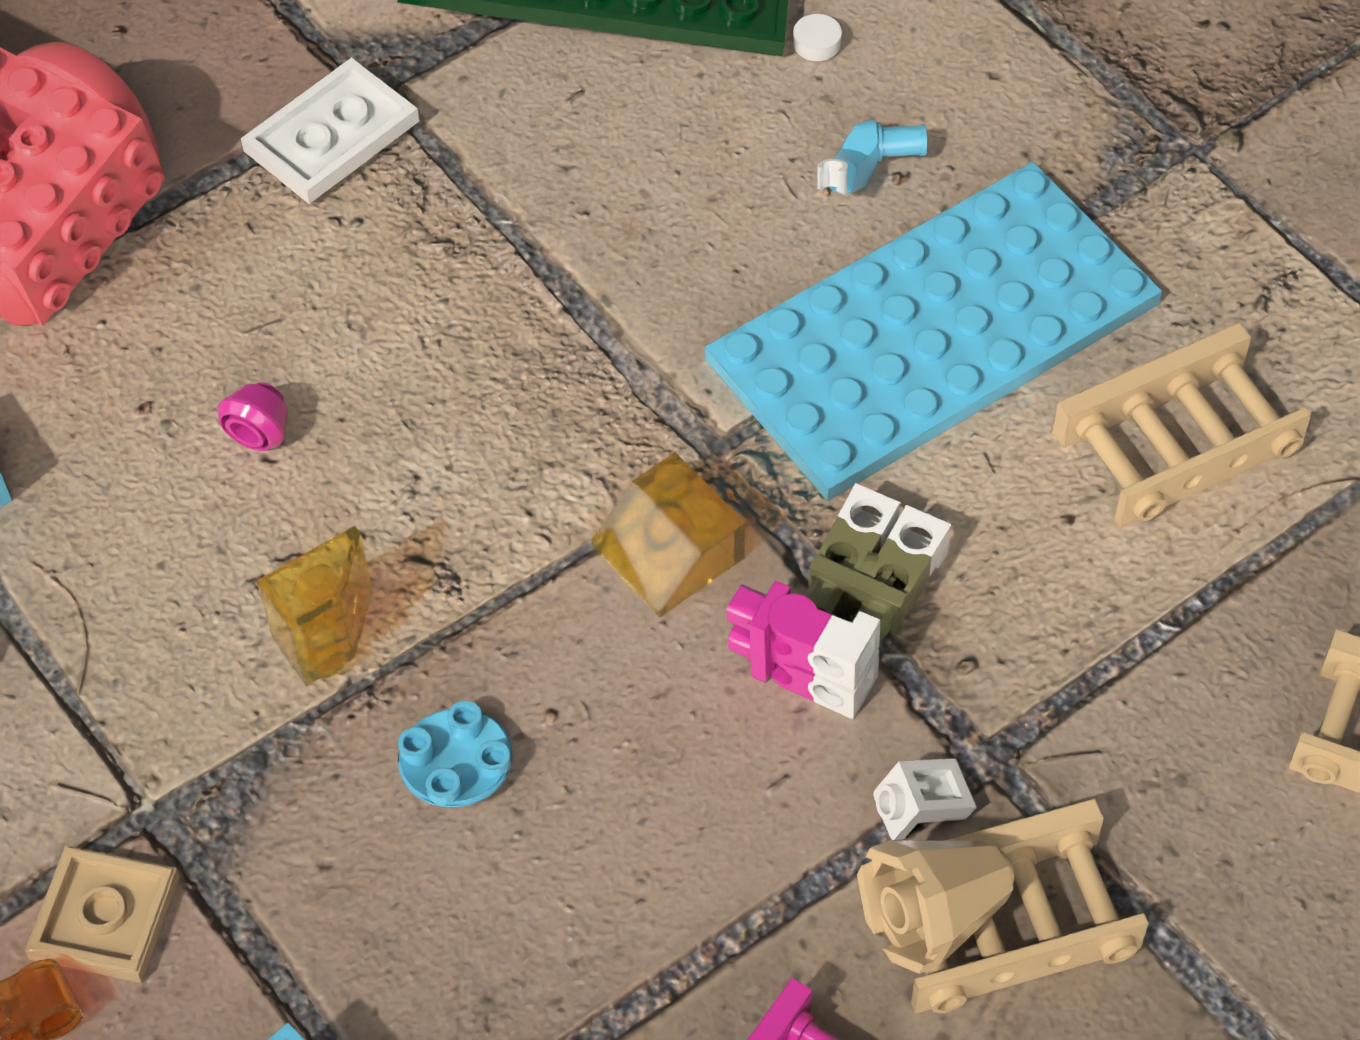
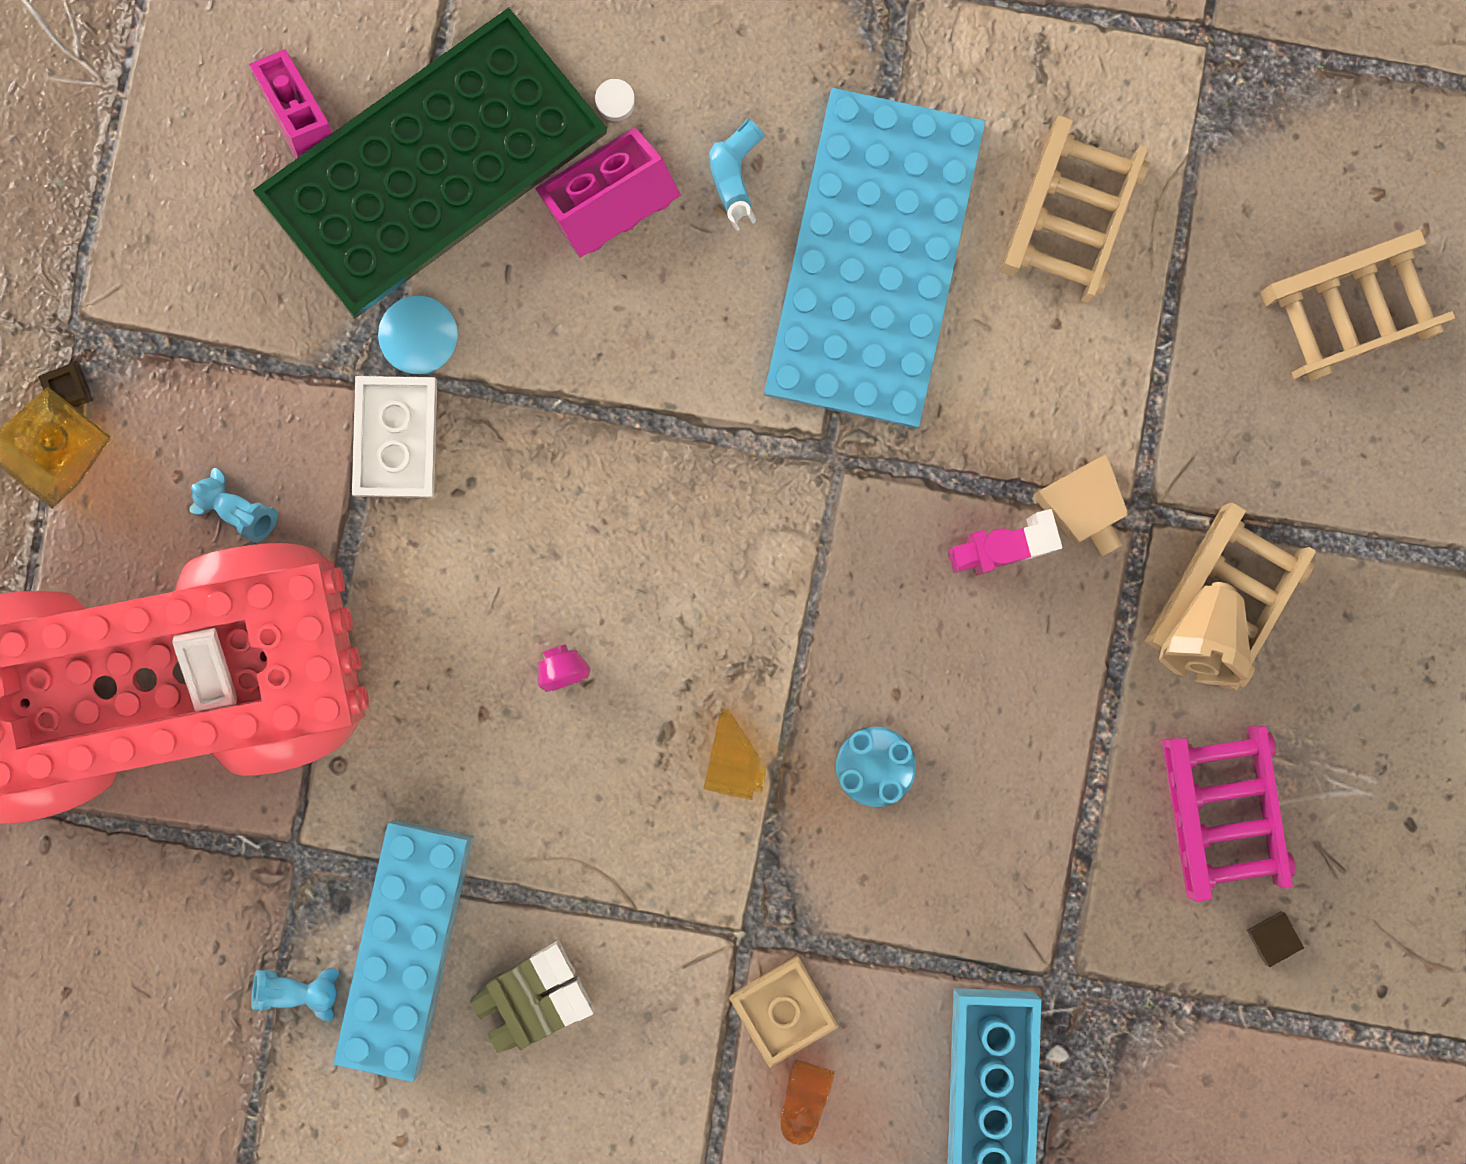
camera: 45 degrees left, 30 degrees up
(128, 59) = (251, 520): none -> medium azure animal
(443, 77) = (418, 335): none -> medium azure dish
(670, 535) = (864, 537): clear yellow slope -> none
(730, 94) = (608, 192): none -> dark pink slope
(875, 560) = (986, 468): olive hips -> none
(922, 793) = (1134, 571): white bracket -> none
(933, 687) = (1087, 504): none -> tan torso

